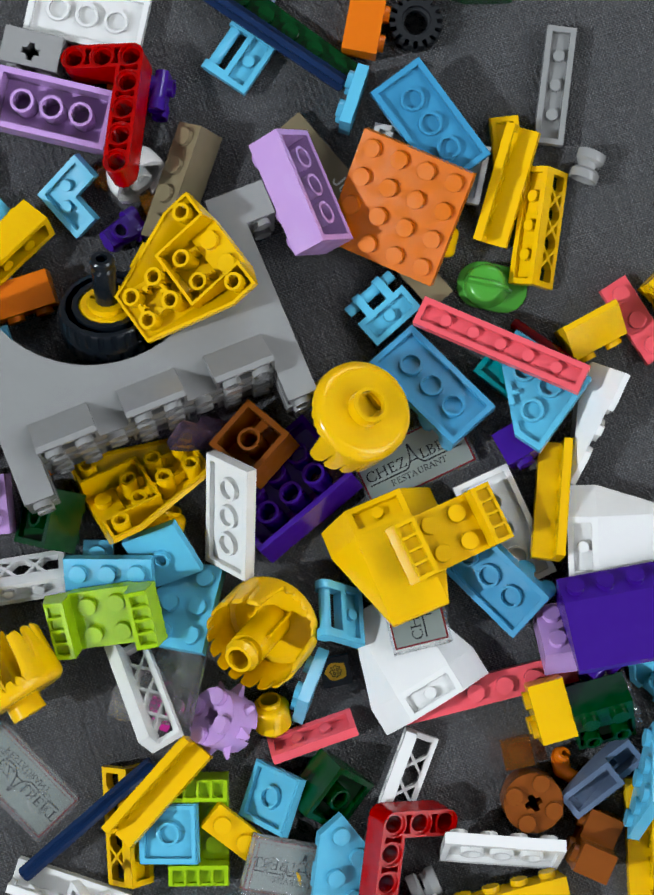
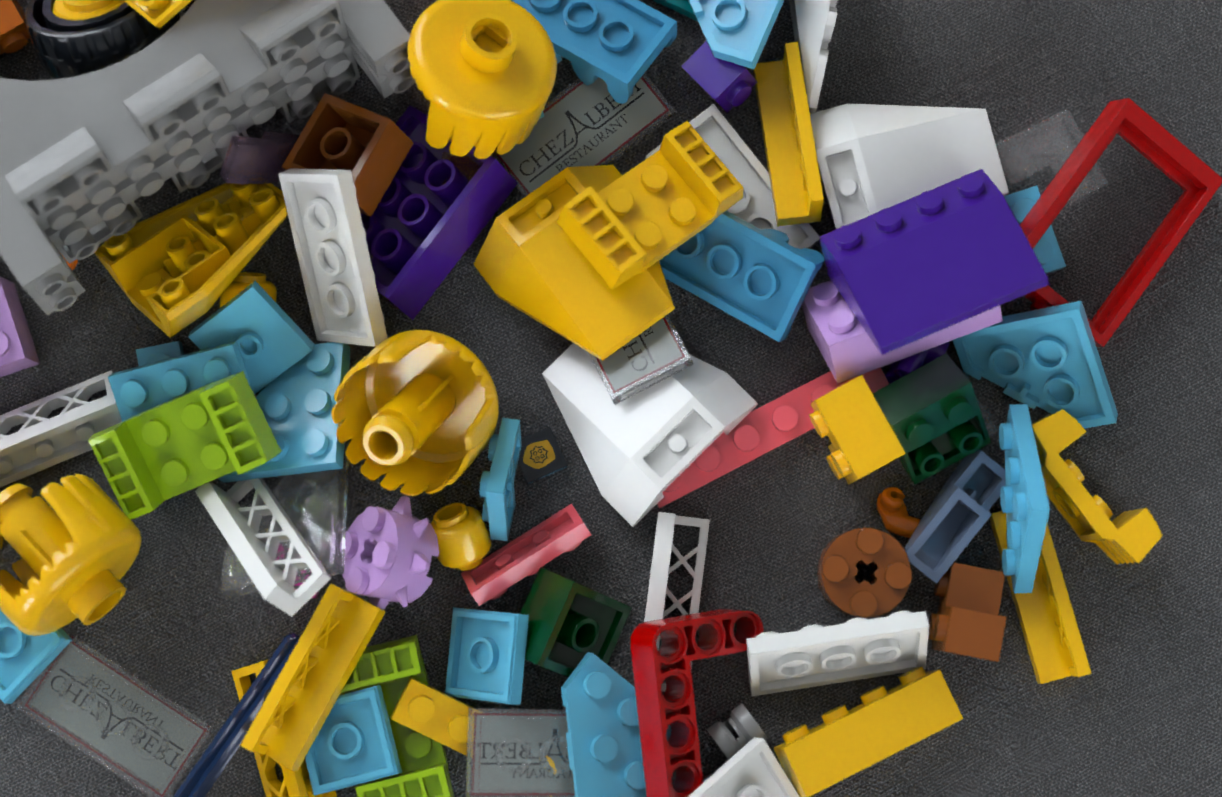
camera: 15 degrees left, 5 degrees down
(54, 530) = (87, 334): dark green slope -> none
(347, 613) = (535, 363): medium azure plate -> none
(517, 752) = (827, 513): clear orange plate -> none

